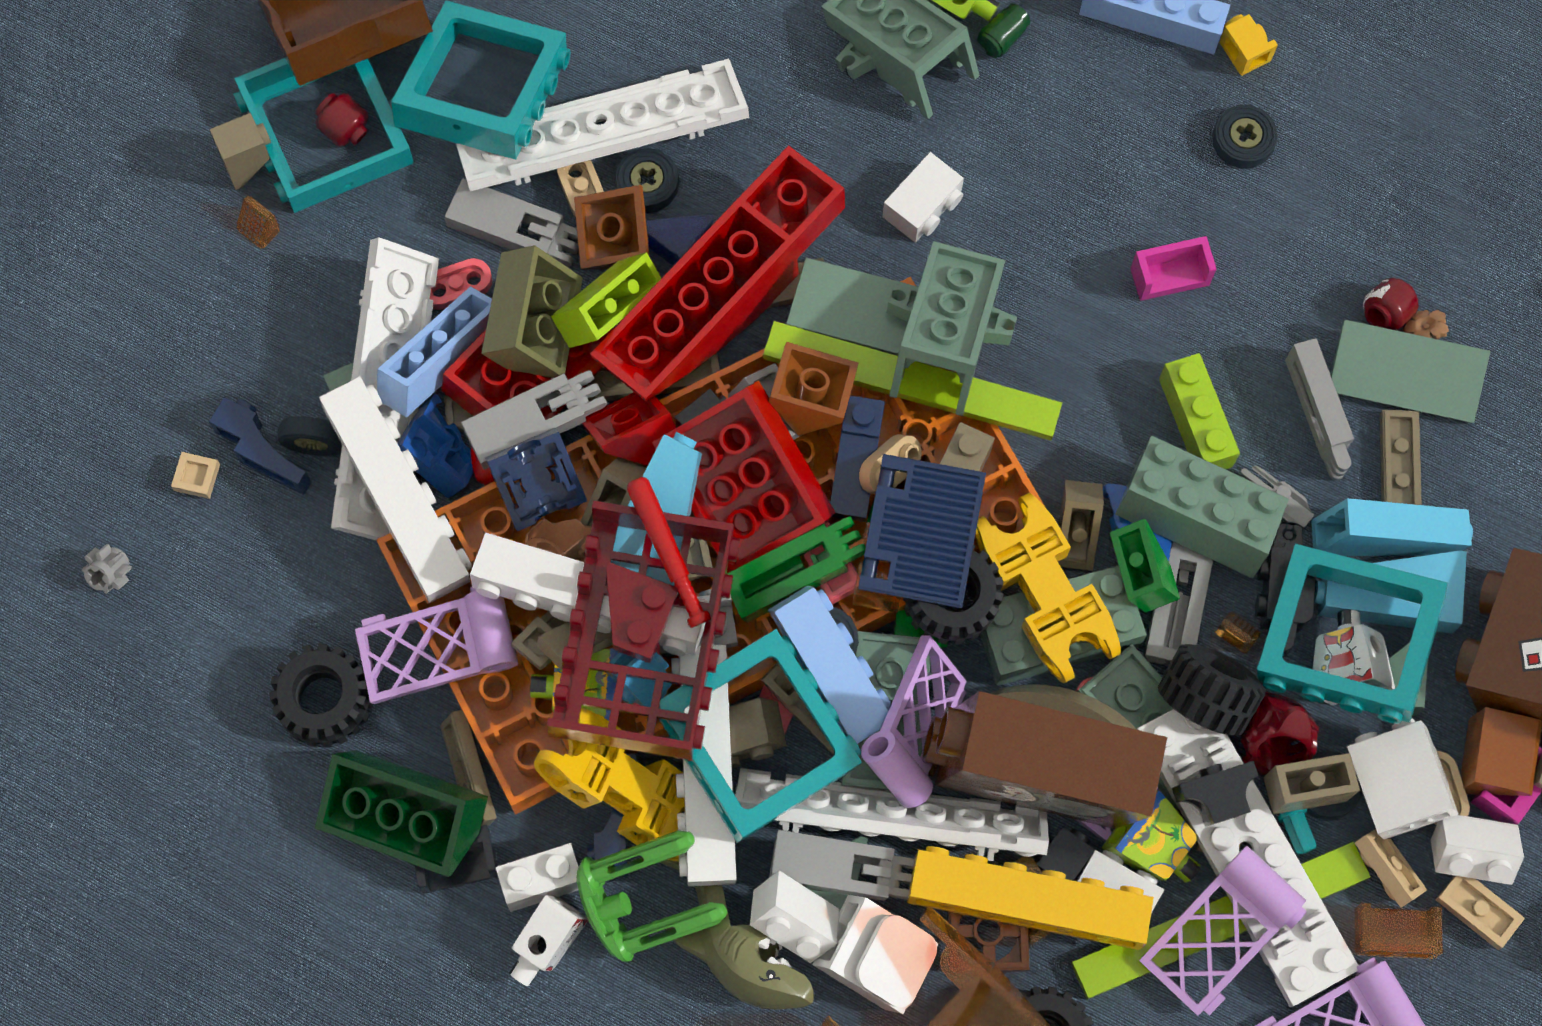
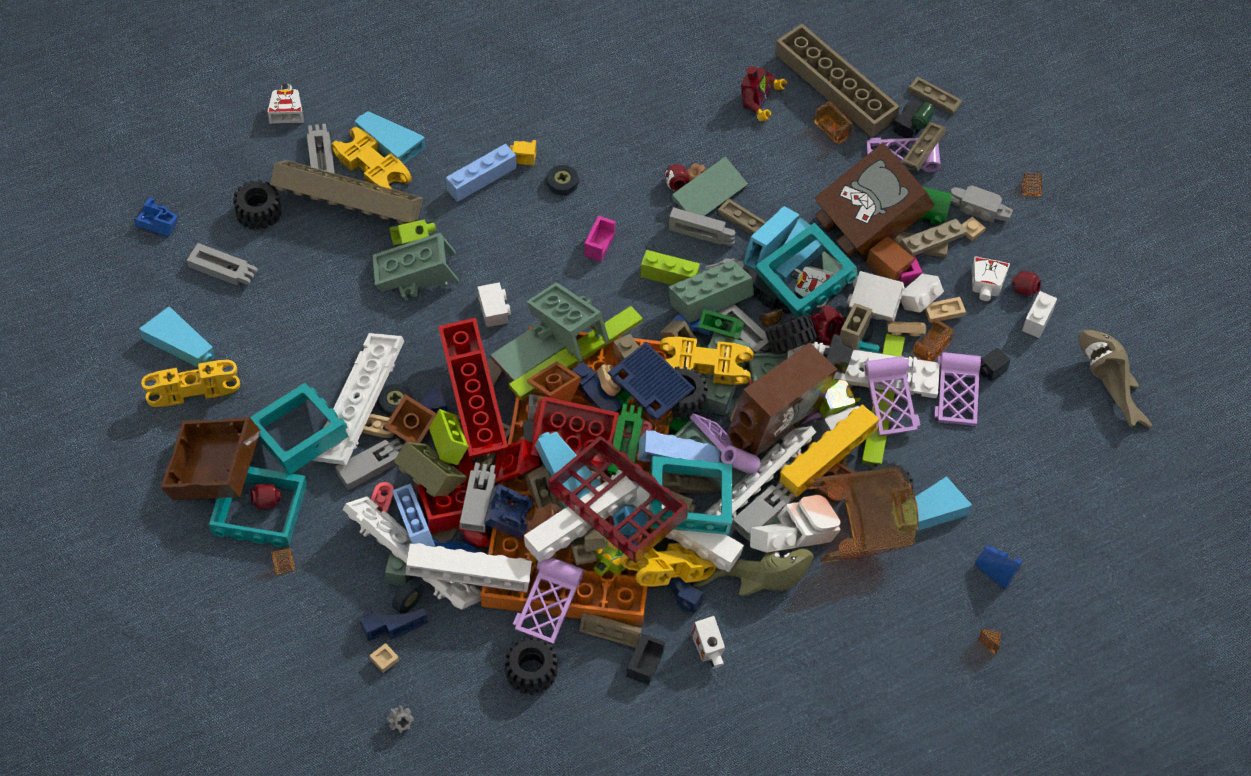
camera: 55 degrees left, 15 degrees down
(242, 148) = (247, 541): dark tan slope -> none
(399, 811) = (611, 662): dark green slope -> none
(542, 874) = (679, 630): white brick -> none
(605, 910) = (716, 605): bright green piece -> none
(638, 611) = (608, 496): dark red wing -> none
(666, 547) = (588, 464): red piece -> none
(1003, 30) = (443, 226): dark green piece -> none

